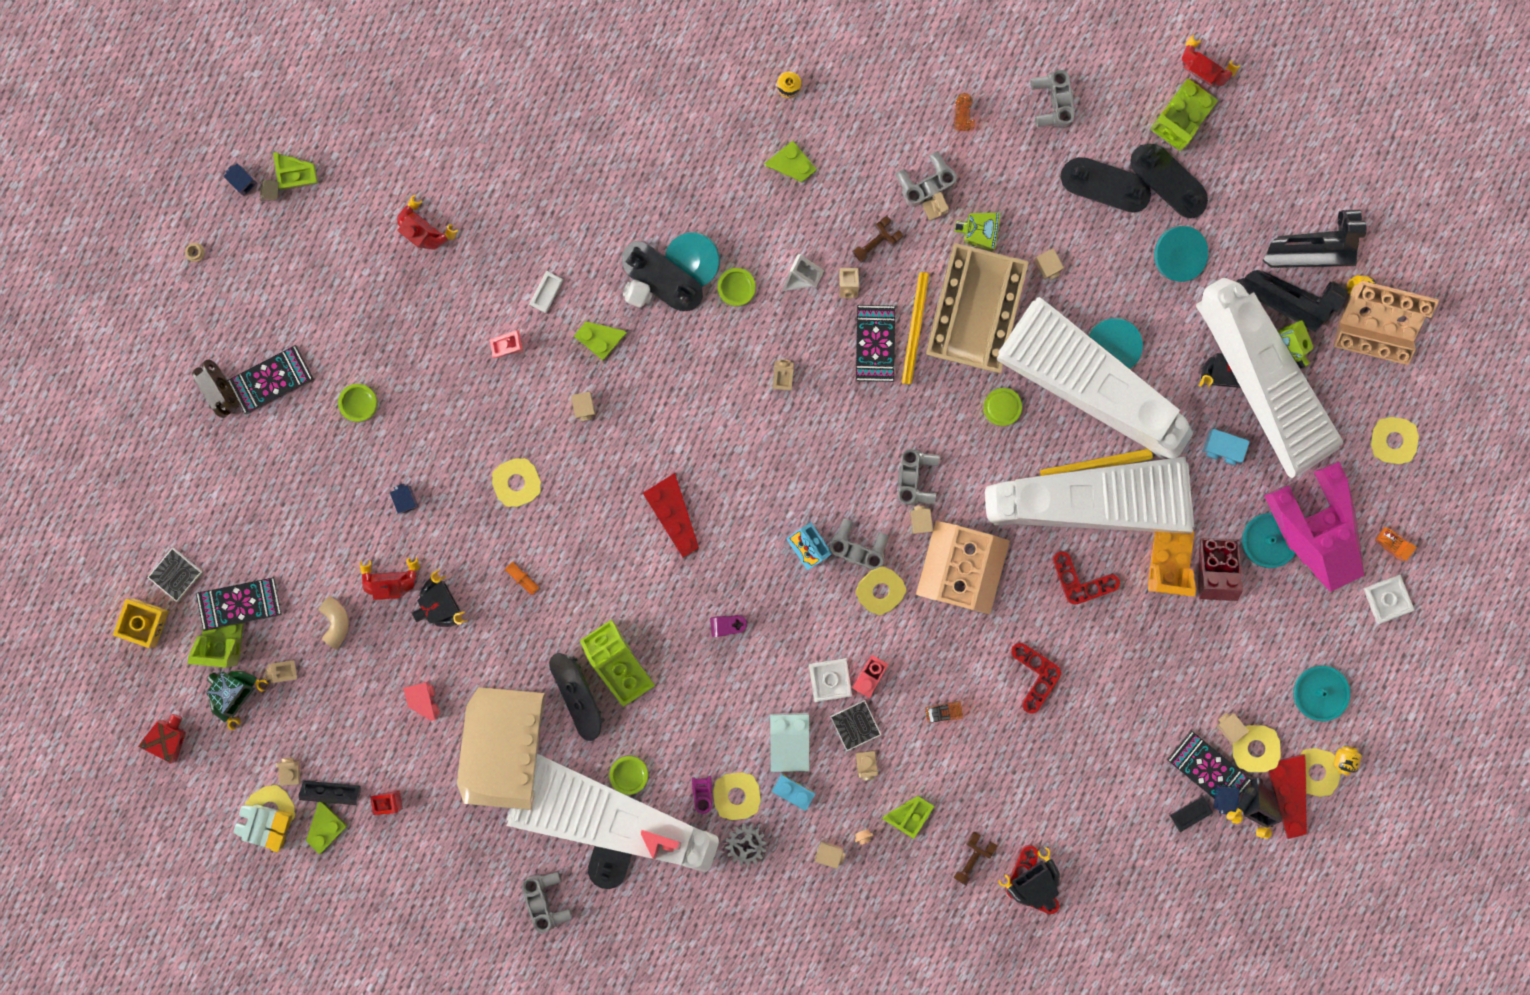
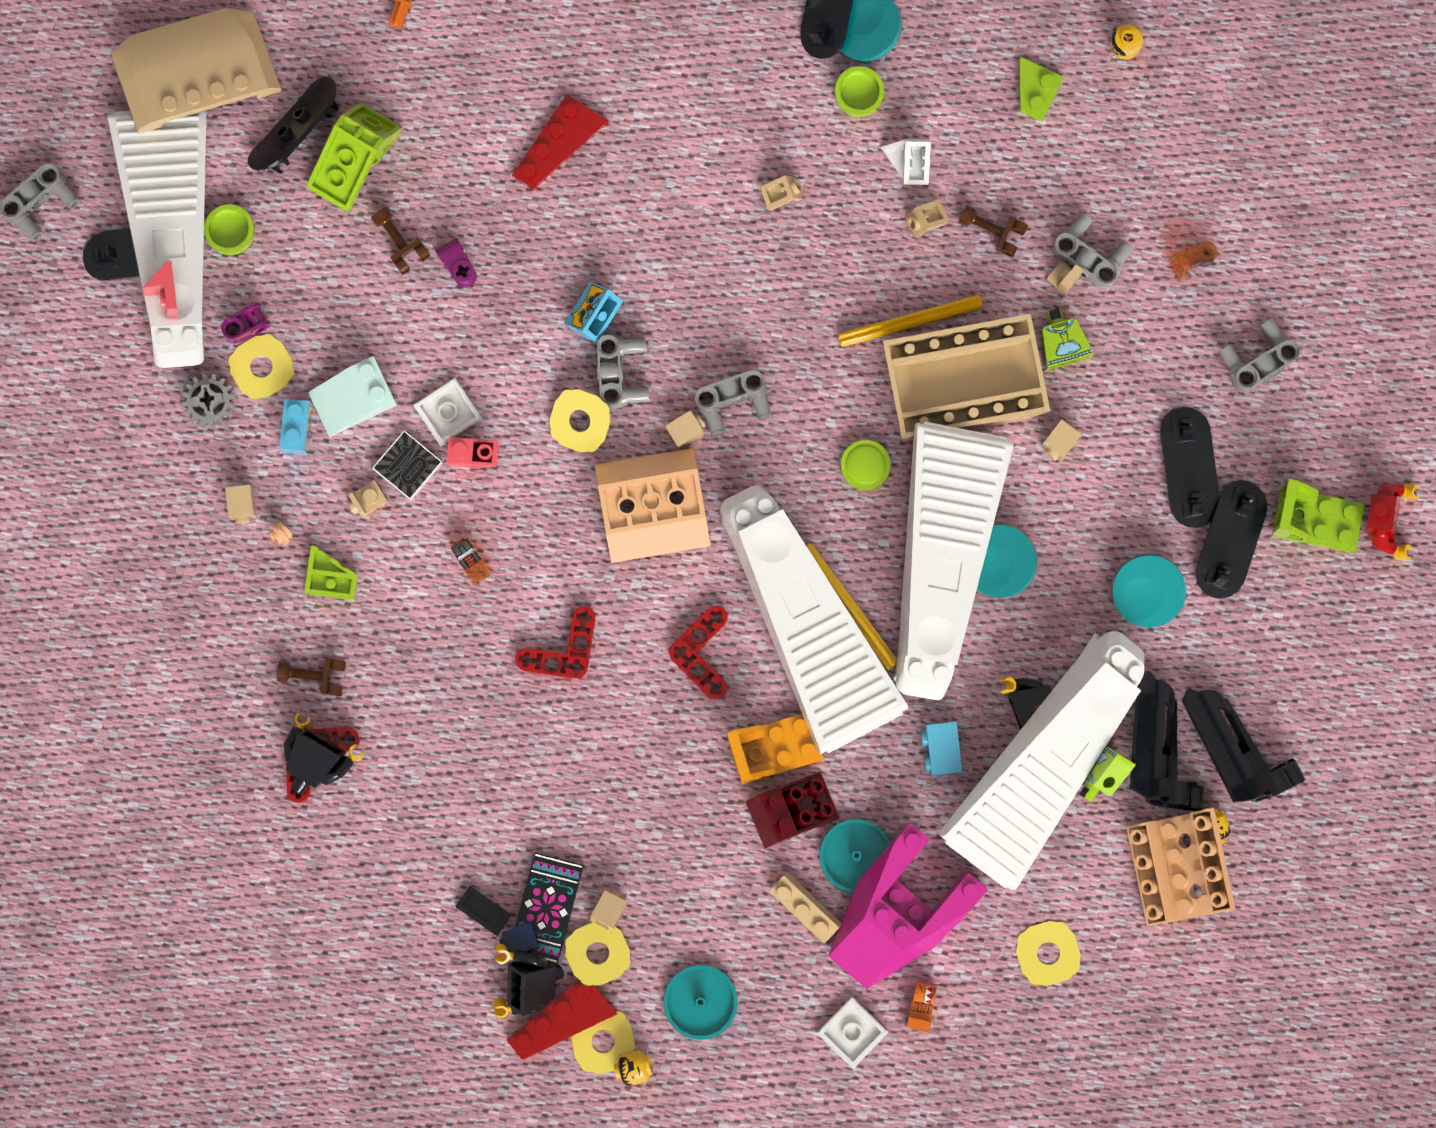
camera: 65 degrees right, 5 degrees down
(672, 662) = (383, 218): none -> reddish brown bar
(875, 343) = (870, 282): black tile -> none
(1290, 591) = (805, 907): none -> tan plate

